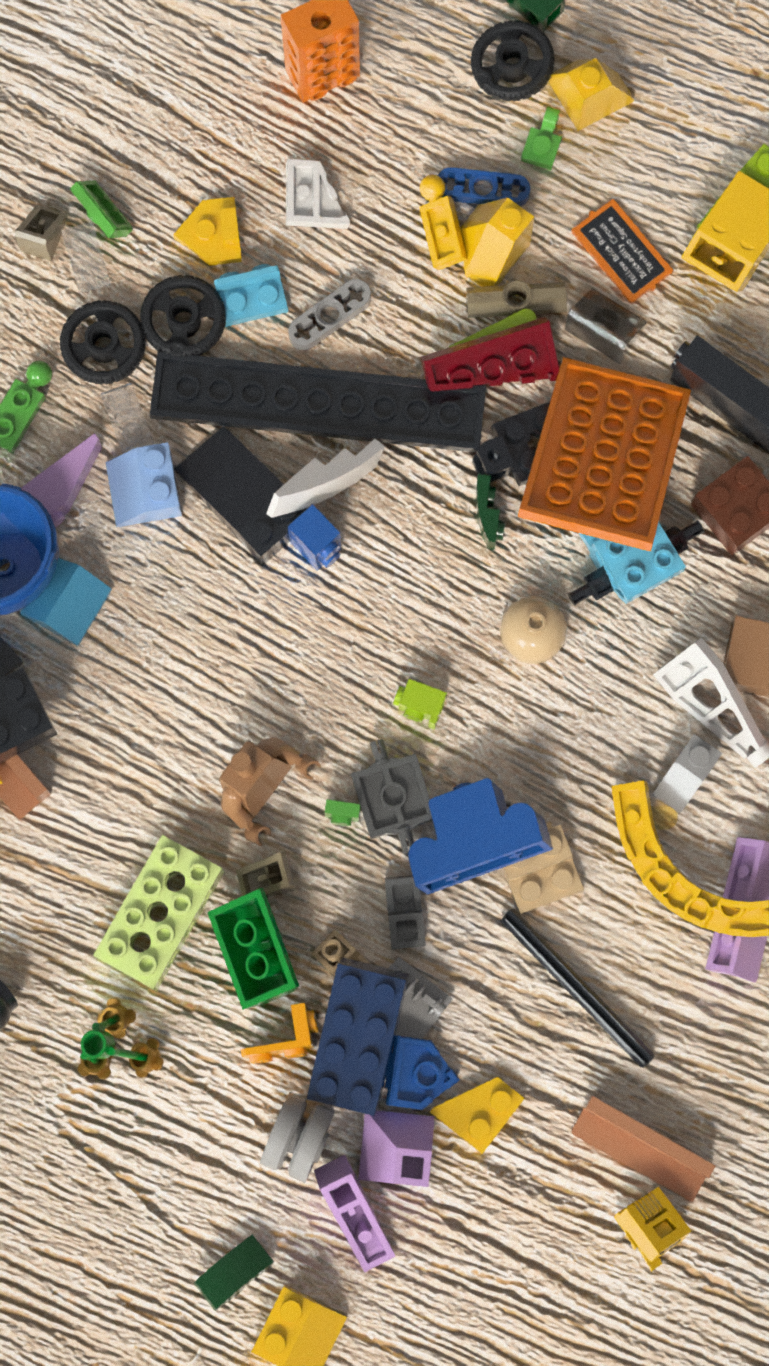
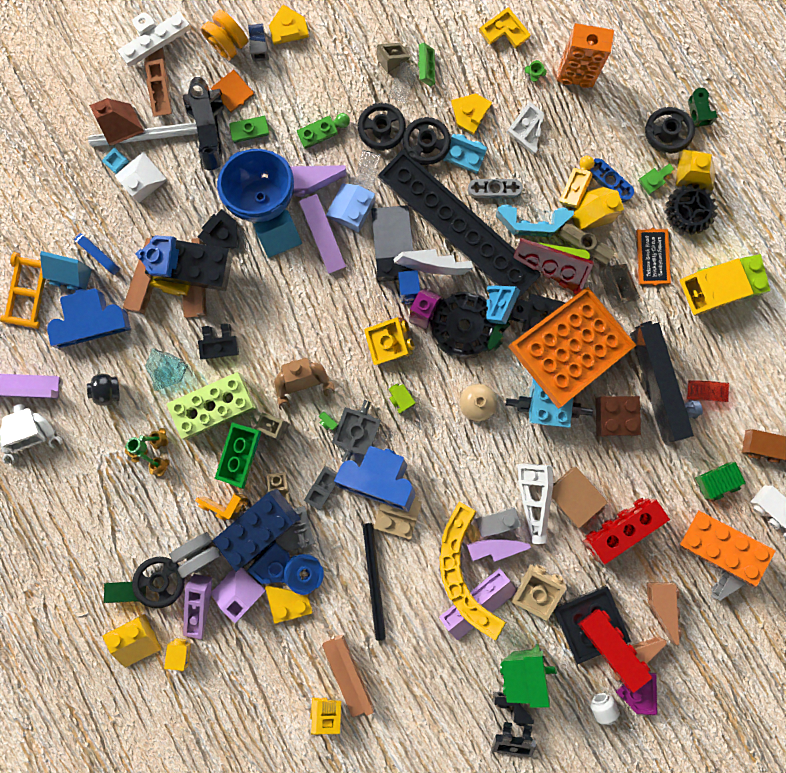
camera: 40 degrees right, 5 degrees up
(50, 913) = (165, 369): none -> clear light blue plate
(104, 823) = (217, 347): none -> black plate
(132, 553) = (322, 233): none -> lavender slope
(173, 73) = (505, 24): none -> yellow plate
(264, 100) = (536, 65): none -> bright green plate
(300, 1235) = (140, 580): none -> black wheel
(343, 635) = (389, 340): none -> yellow plate
(361, 553) = (424, 308): none -> magenta slope
(378, 1301) = (177, 655): none -> yellow brick
(380, 341) = (508, 216): none -> medium azure slope
(422, 553) = (457, 334): none -> black plate
(452, 1046) = (310, 582): none -> blue plate
(460, 466) = (501, 303): none -> dark azure wing
(602, 161) = (703, 209): none -> black gear
(711, 813) = (496, 548): none -> lavender slope

